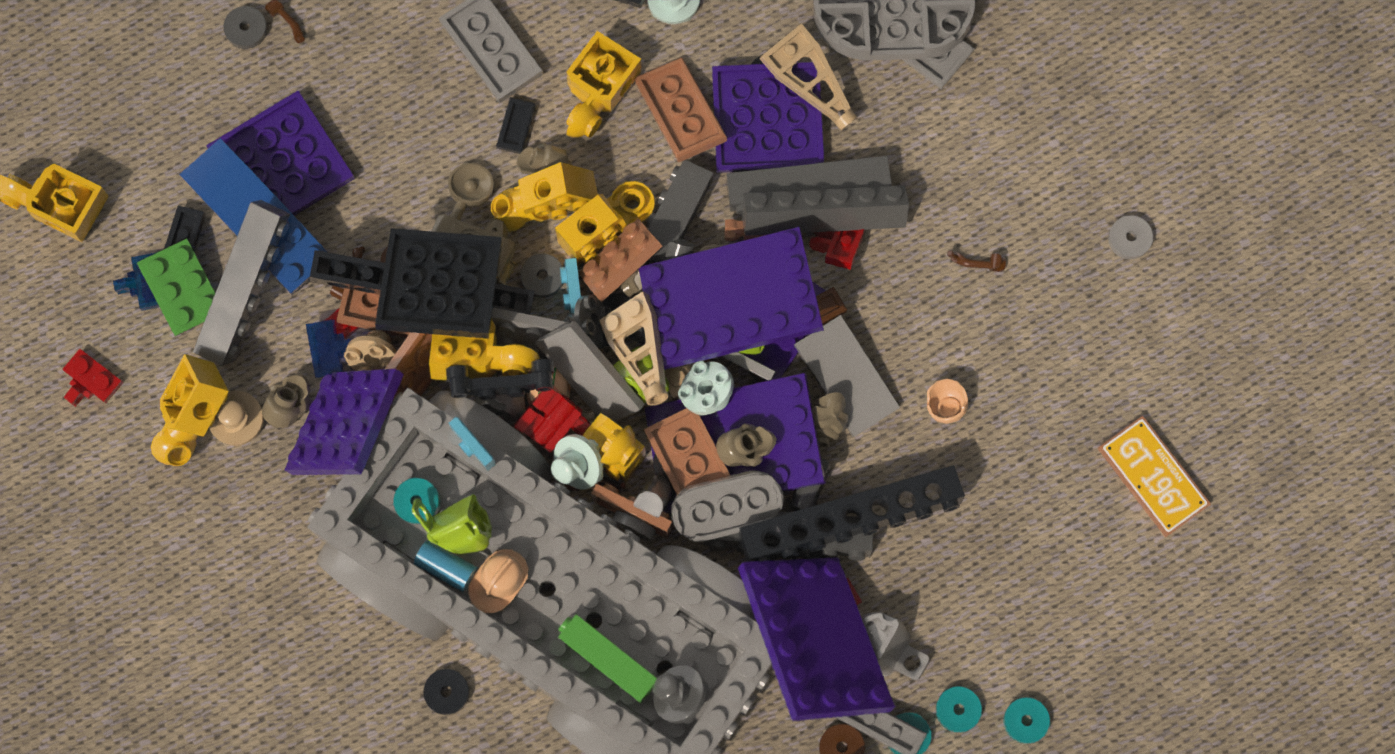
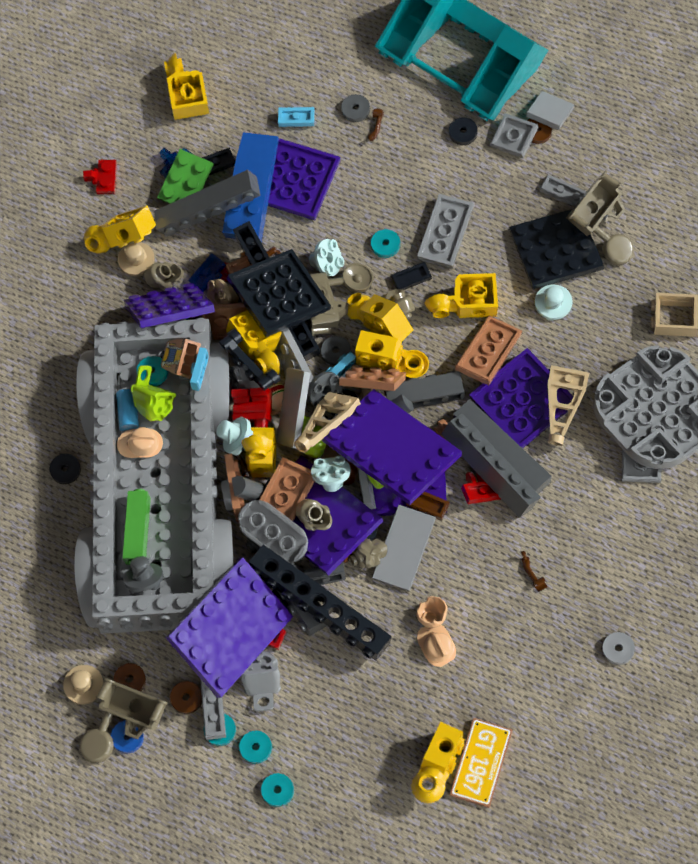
camera: 60 degrees right, 10 degrees down
(200, 101) = (296, 116): none -> medium azure plate
(419, 200) = (326, 257): none -> light aqua plate
(434, 456) = (179, 356): none -> nougat torso
(445, 112) = (382, 236): none -> teal piece
(984, 425) = (436, 645): none -> light nougat piece
(1131, 525) = (438, 764): none -> yellow brick

